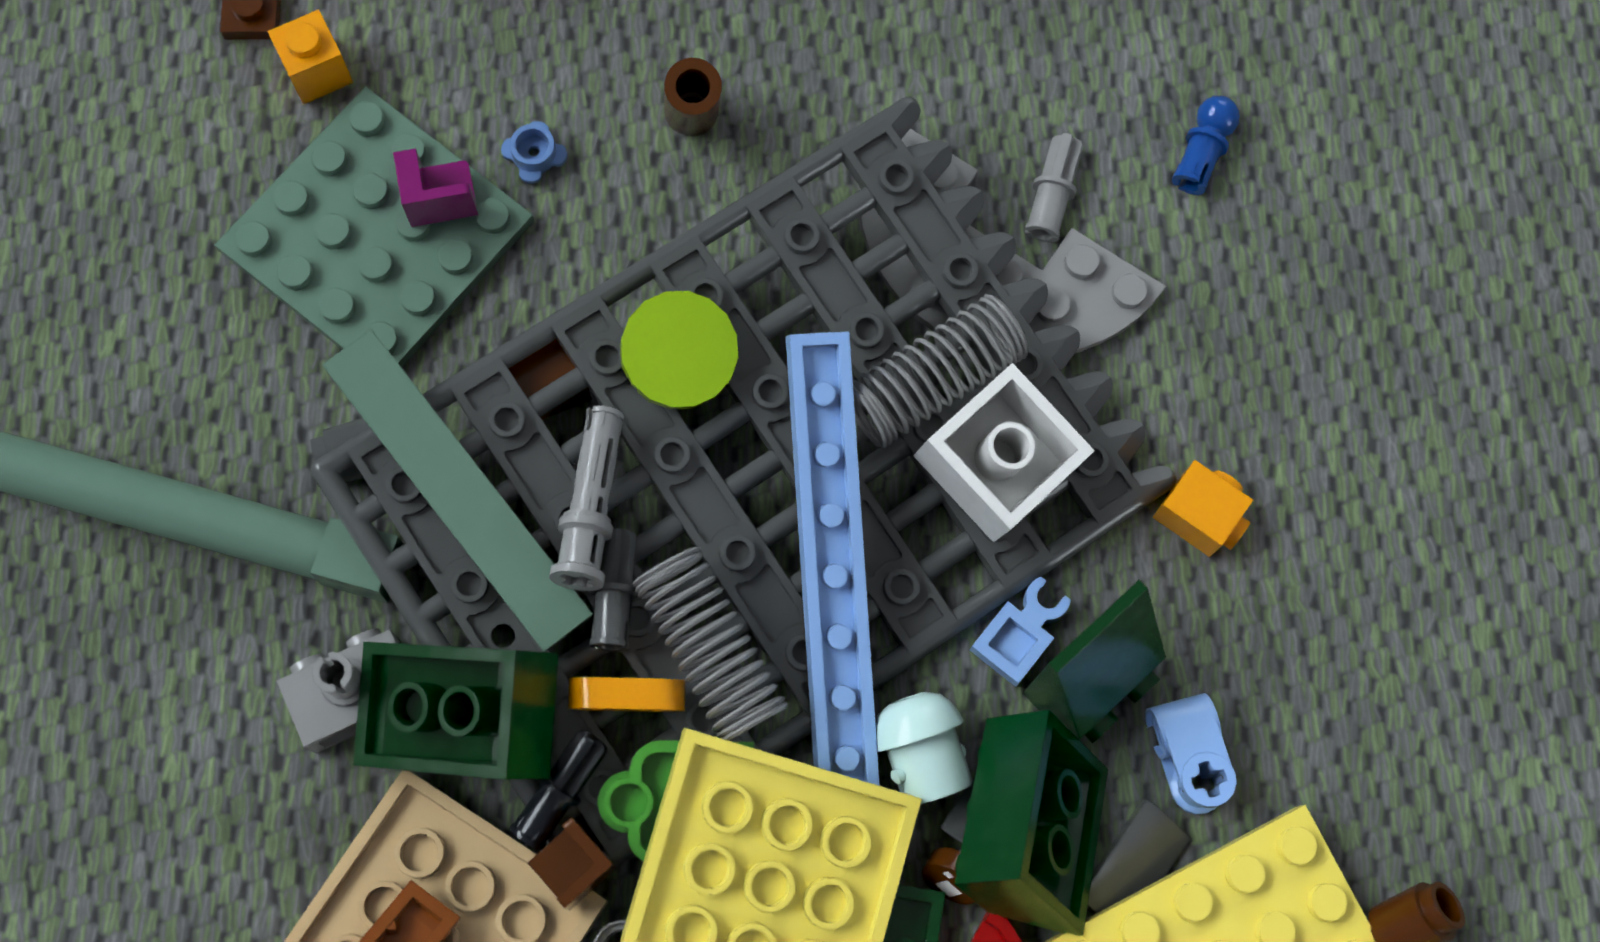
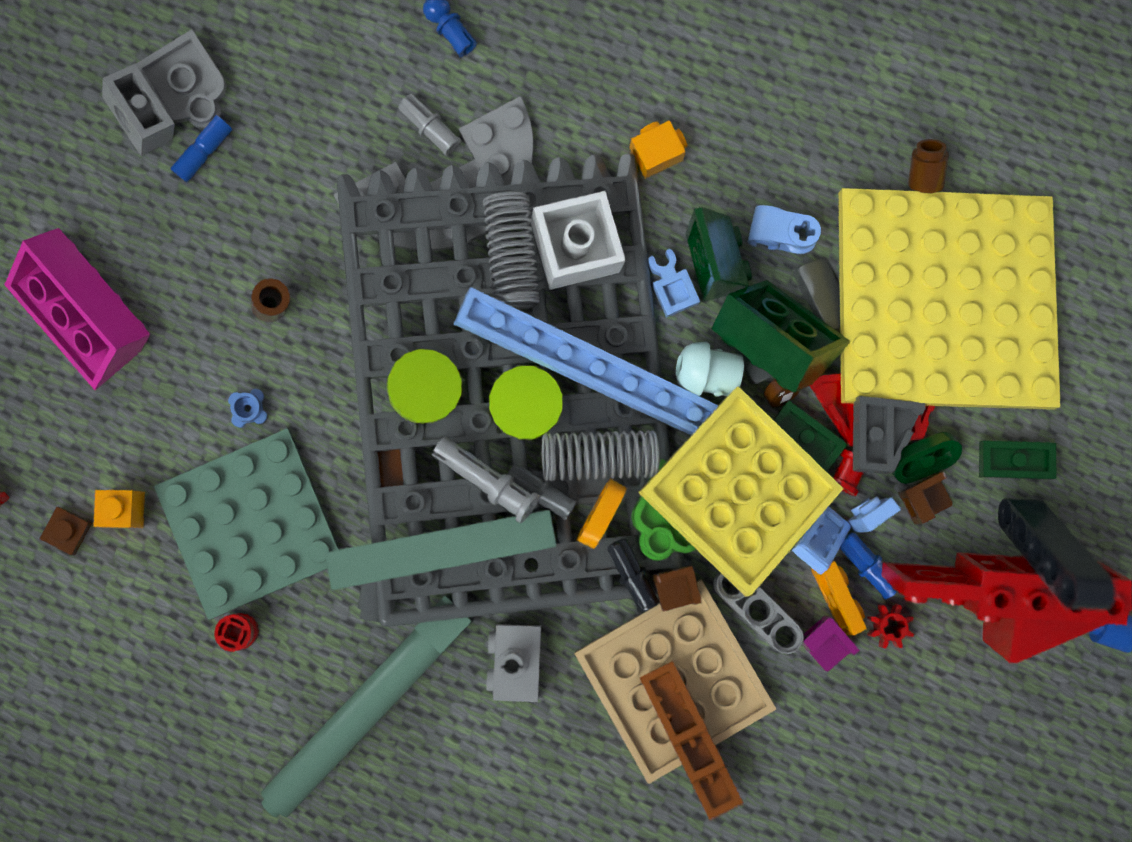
camera: 55 degrees left, 10 degrees up
(221, 299) = (244, 630): none -> red wheel
(435, 191) = (246, 476): magenta panel -> none
(456, 710) = (564, 609): dark green slope -> none
(732, 503) = (525, 402): none -> lime tile

